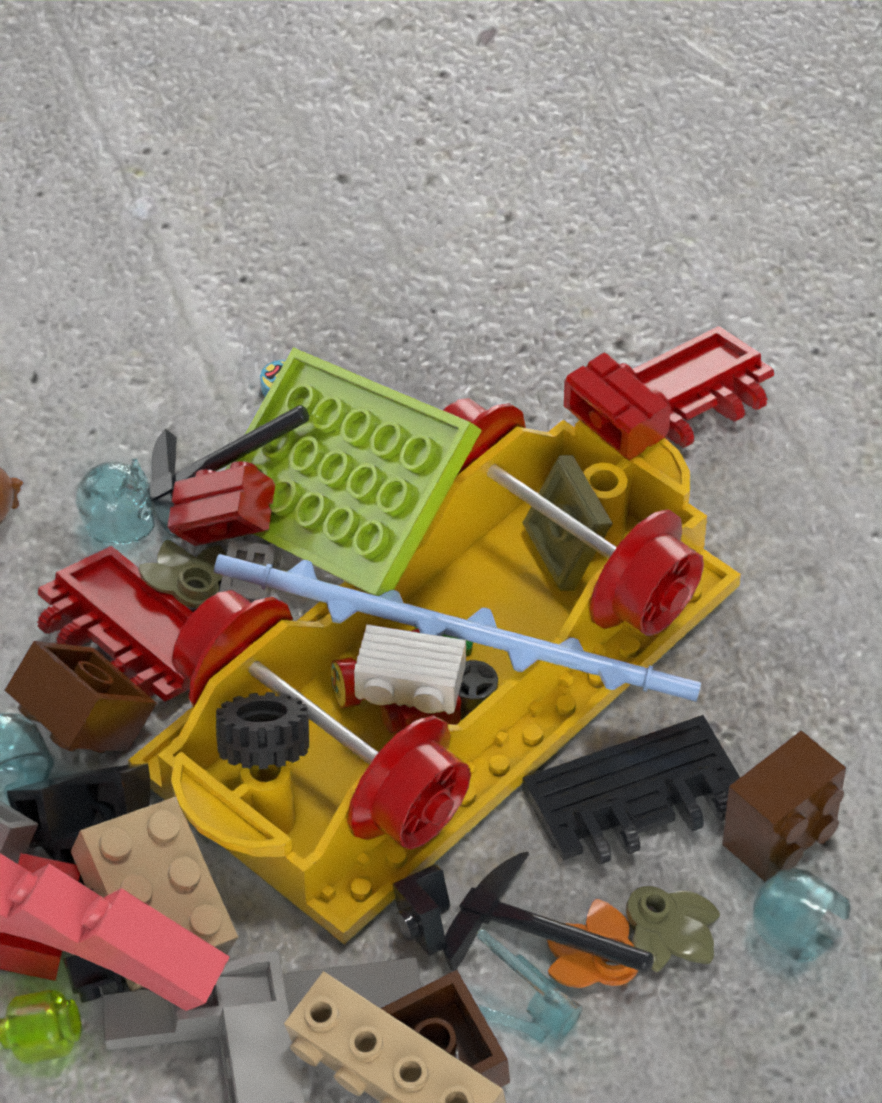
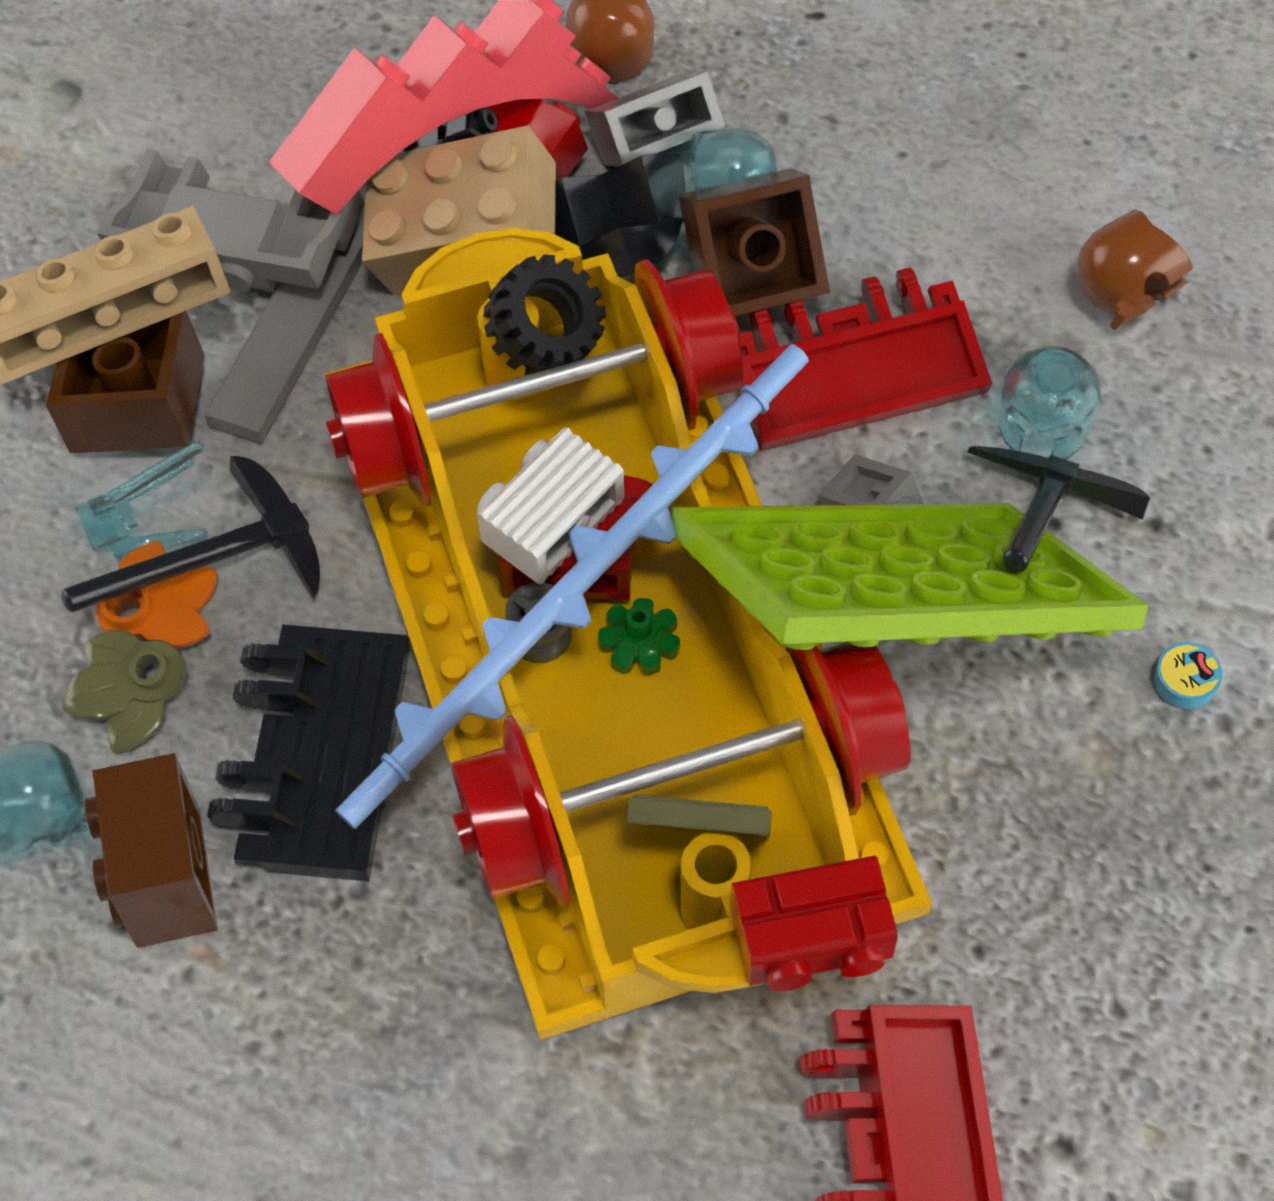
camera: 120 degrees right, 10 degrees up
(182, 574) = (917, 436): olive plate -> none
(221, 504) = (964, 479): red brick -> none
(419, 905) = (298, 445): black bracket -> none

